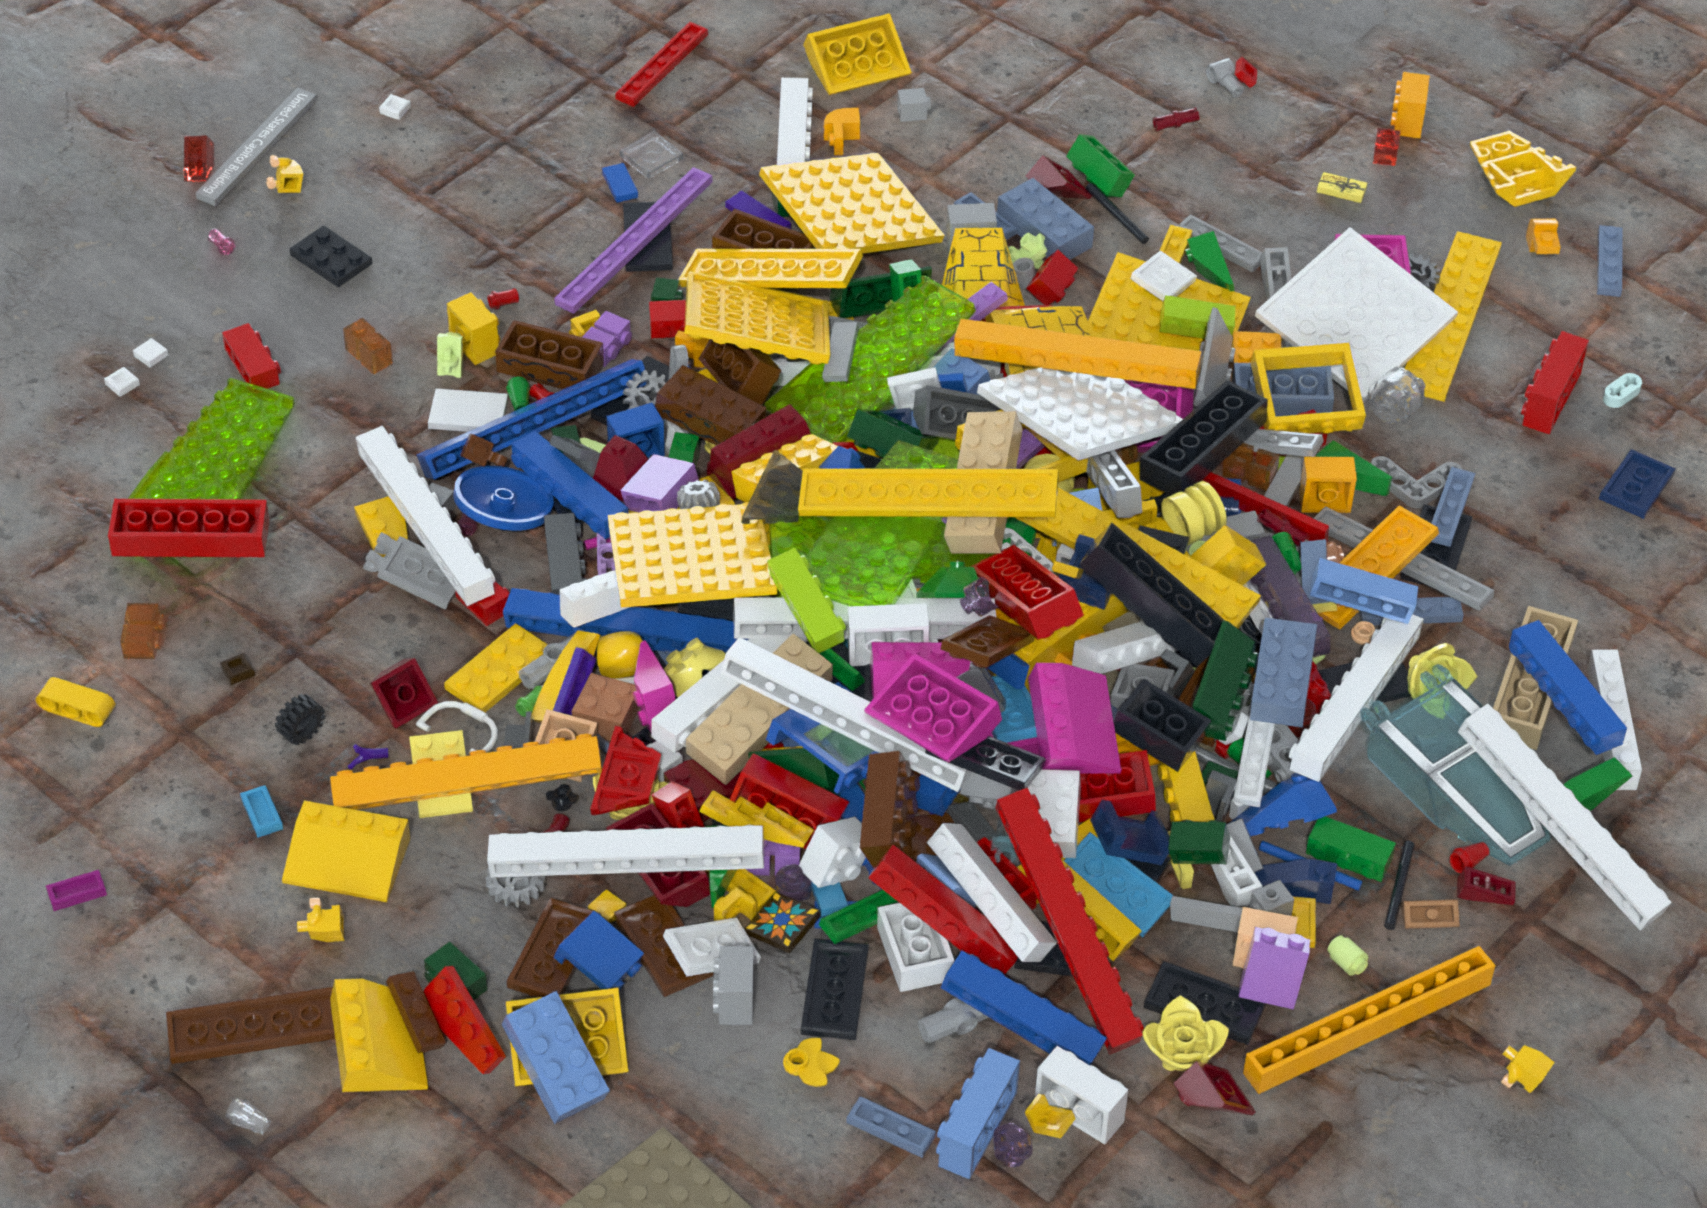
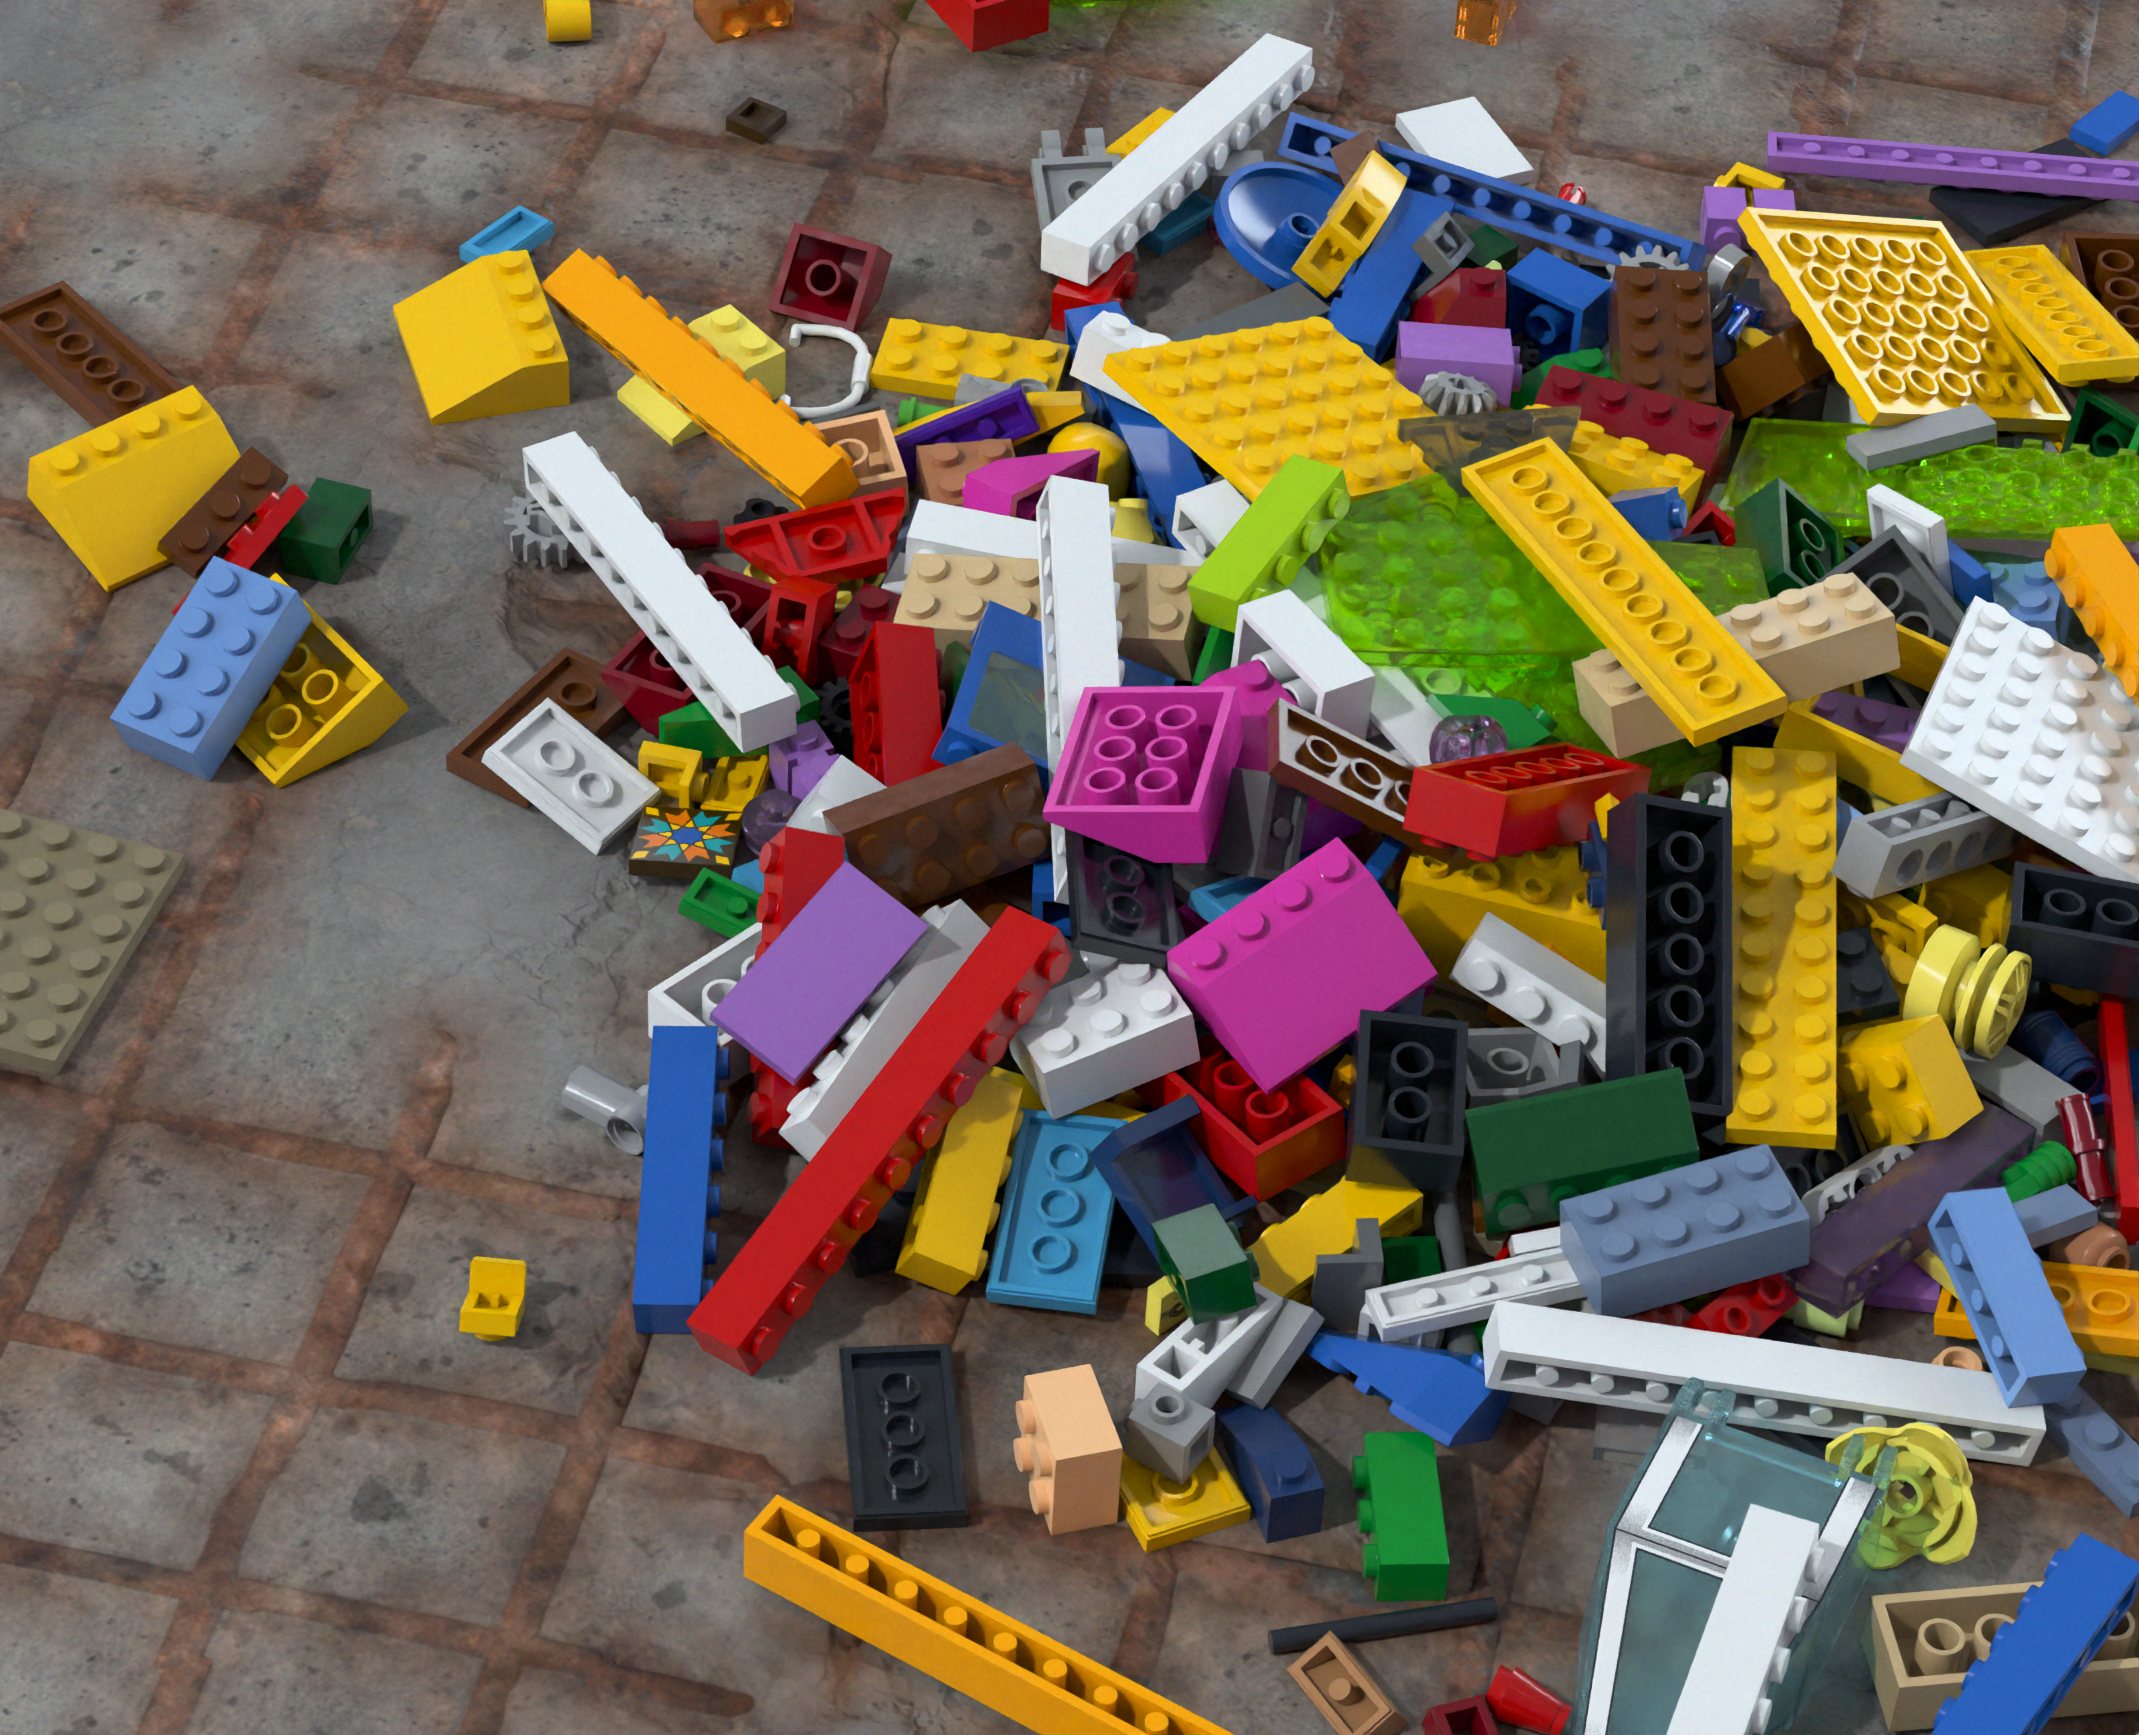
camera: 60 degrees right, 5 degrees down
(76, 890) = (235, 130): magenta tile -> none
(300, 719) = (697, 180): black tyre -> none
(323, 924) = (331, 370): yellow piece -> none
(367, 754) = (688, 295): dark purple bar -> none
(450, 354) = (1538, 74): yellowish green hips -> none
(476, 325) = (1618, 74): yellow brick -> none
(502, 298) = (1729, 93): red pin -> none
(518, 392) = (1548, 174): green cone -> none
(527, 467) = (1350, 224): none -> yellow slope
(536, 969) = (450, 616): reddish brown plate -> none
(548, 355) = (1641, 166): reddish brown brick -> none
(600, 953) = (457, 654): blue panel -> none
(607, 904) = (583, 638): yellow tile -> none
(734, 985) = (500, 820): light grey brick -> none
(776, 824) = (833, 700): yellow slope -> none
(814, 1062) = (427, 978): yellow plate -> none
(834, 989) = (594, 958): black tile -> none
(891, 1127) = (360, 1122): sand blue tile -> none
(960, 895) = (819, 972): none -> medium lavender tile
(977, 1113) = (427, 1196): medium blue brick -> none
(1016, 1146) = (396, 1272): clear purple piece -> none
(1092, 1096) = (554, 1314): white brick -> none
(1180, 1023) = (778, 1420): light yellow brick -> none
(1205, 913) = (1087, 1348): light grey tile -> none
(1212, 1089) = (696, 1502): dark red slope -> none
(1274, 967) = (1001, 1469): medium lavender brick -> none
(1288, 856) = (1329, 1469): blue bar -> none
(1348, 955) = (1146, 1595): yellowish green brick -> none

